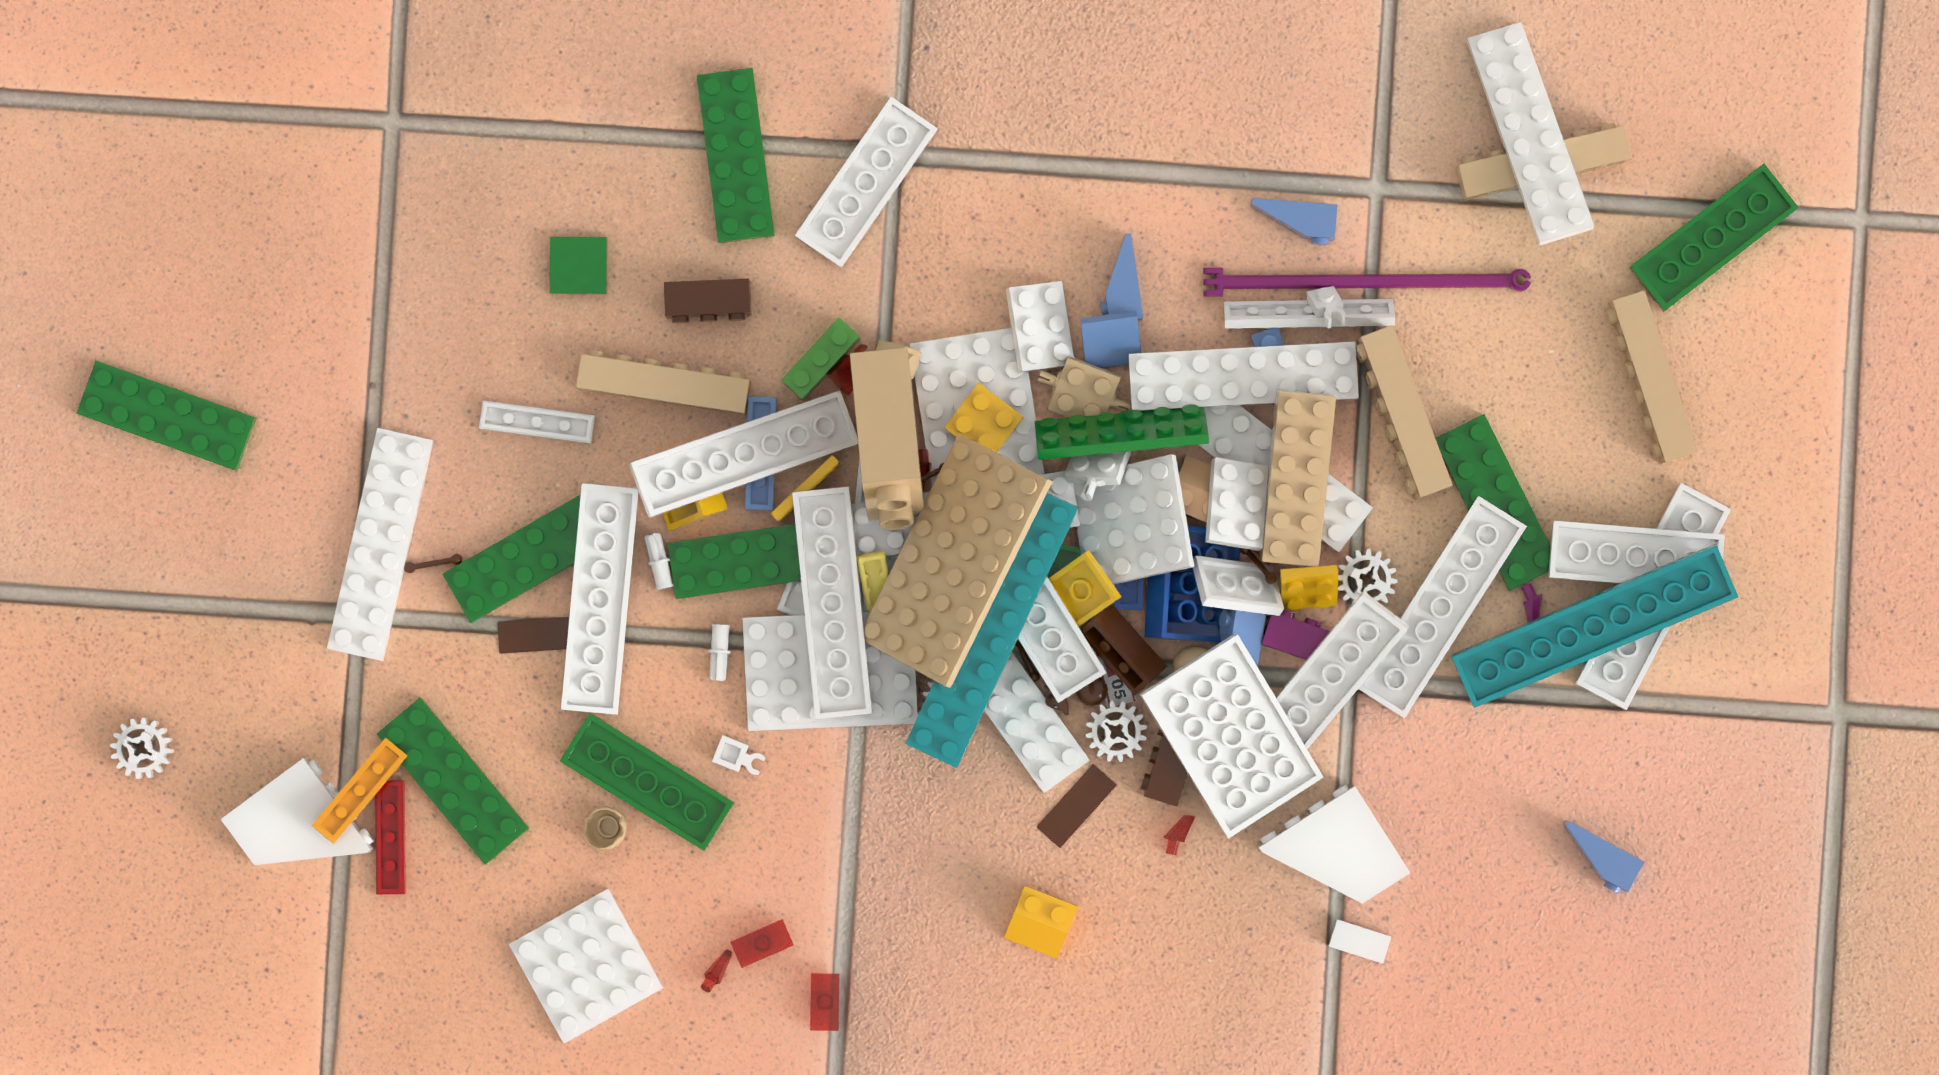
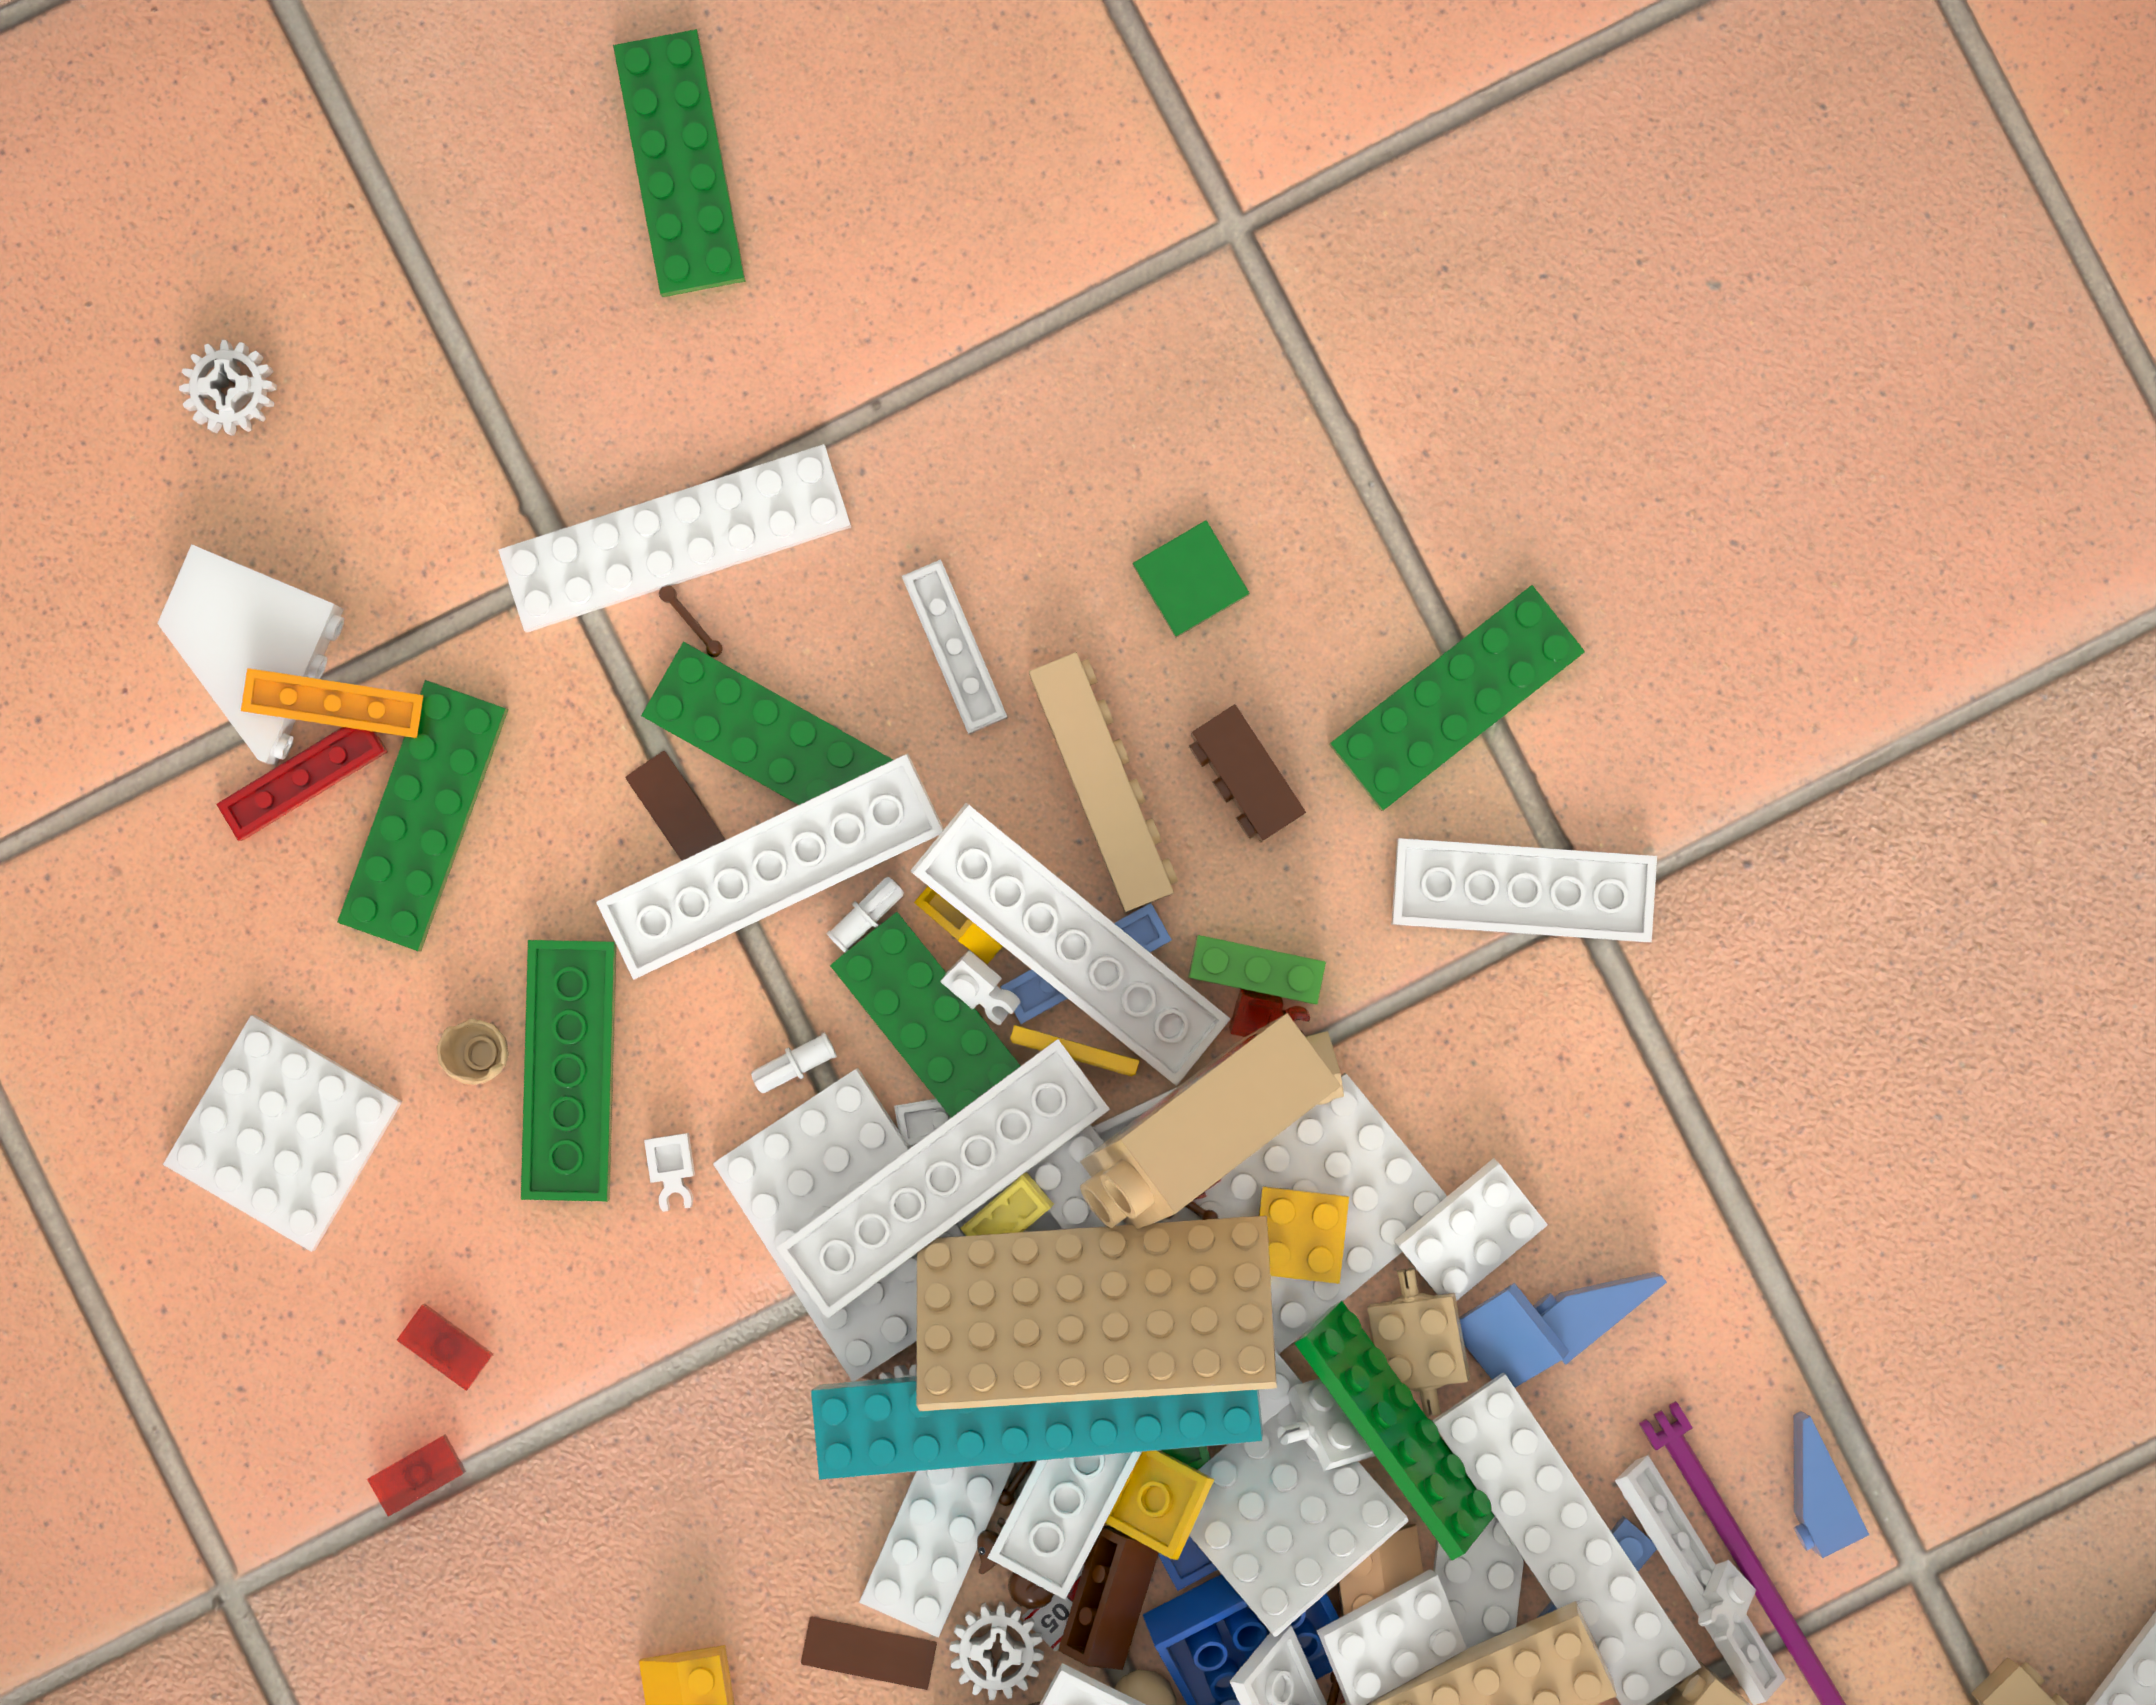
camera: 60 degrees right, 0 degrees up
(716, 971) = (373, 1308): clear red bar -> none
(734, 520) = (977, 984): none -> white plate

